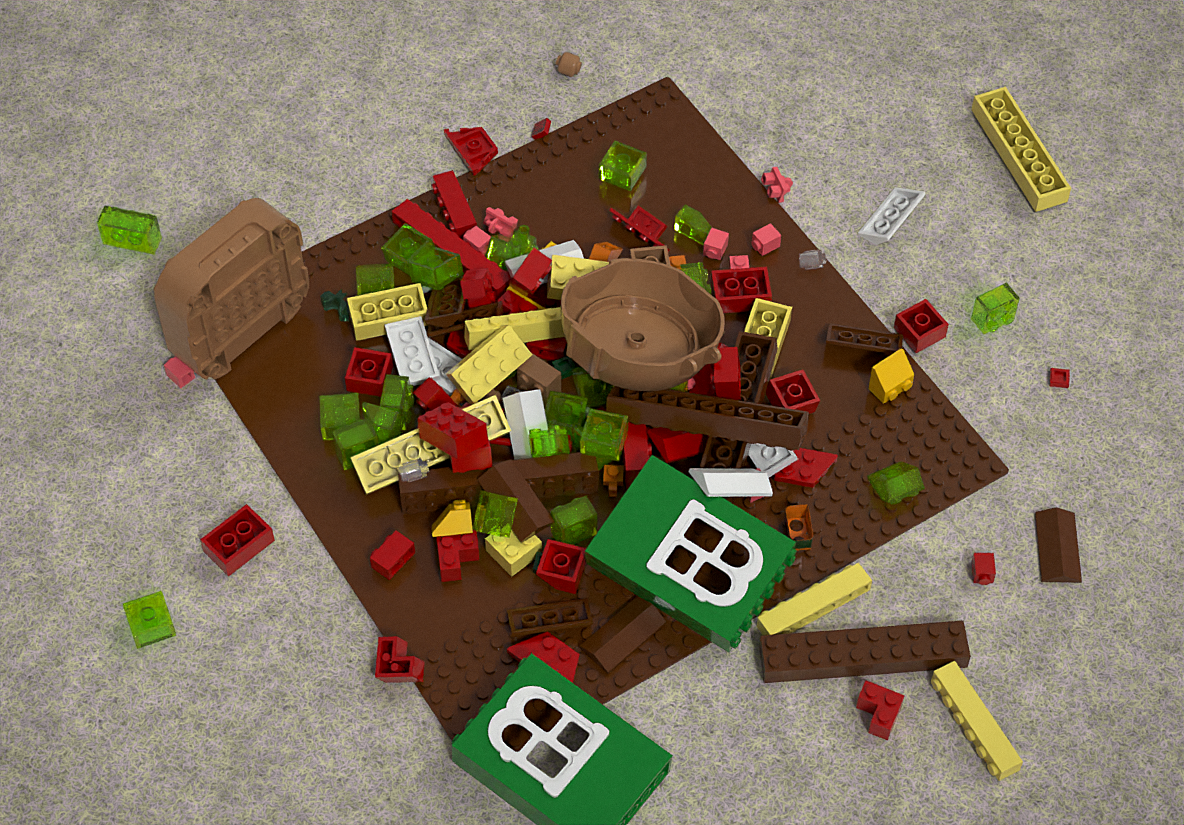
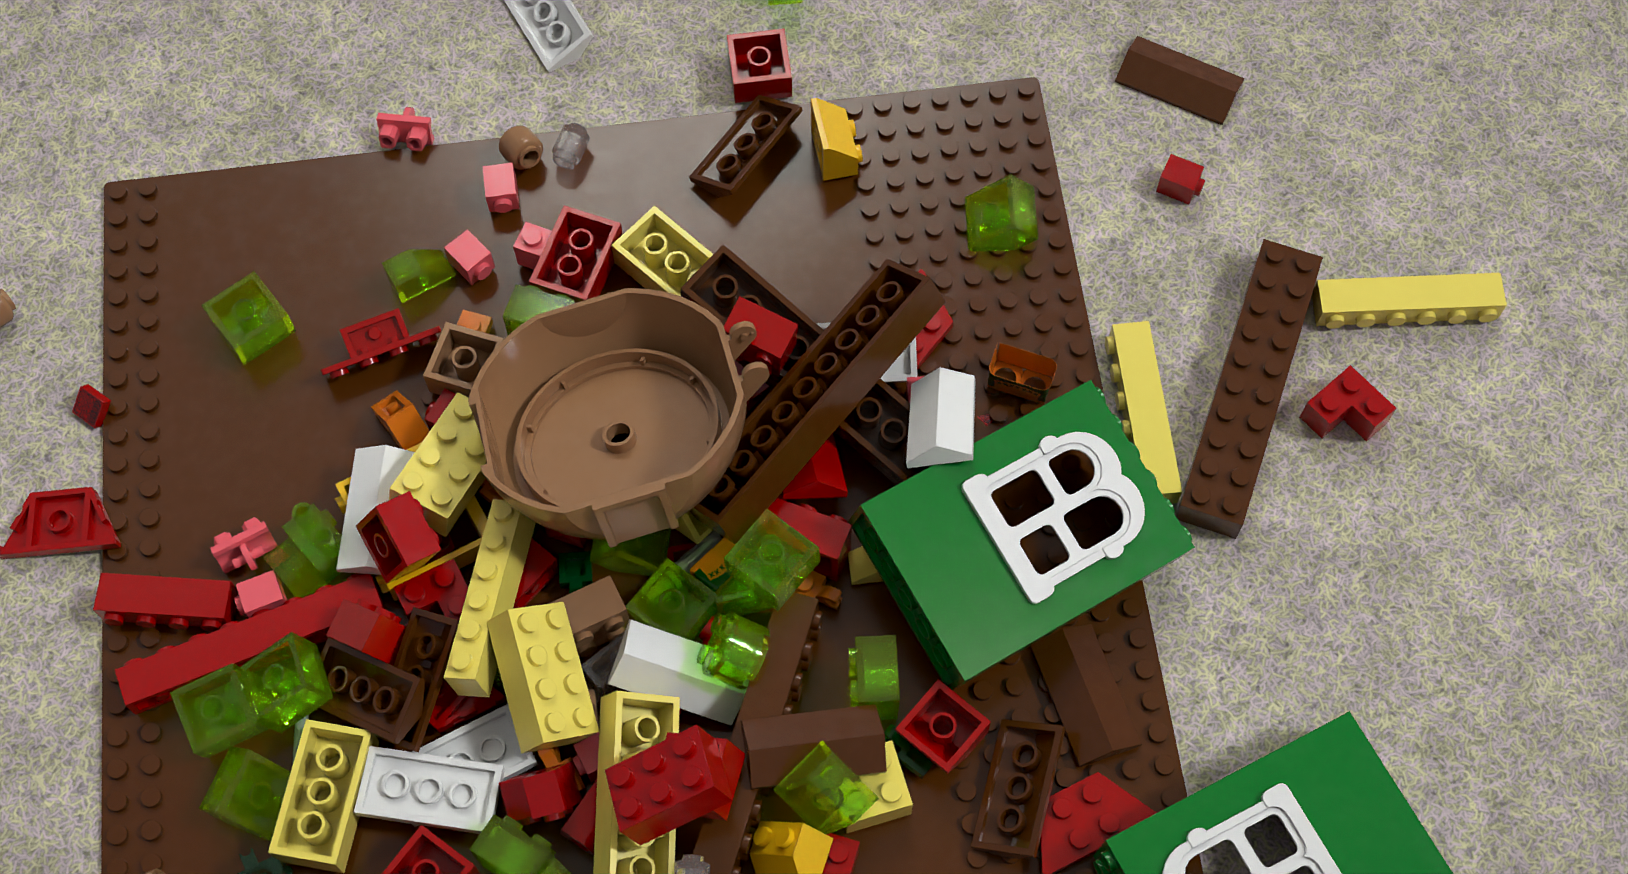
camera: 65 degrees left, 10 degrees up
(793, 392) = (802, 275): red brick -> none
(796, 237) = (521, 147): none -> medium nougat head

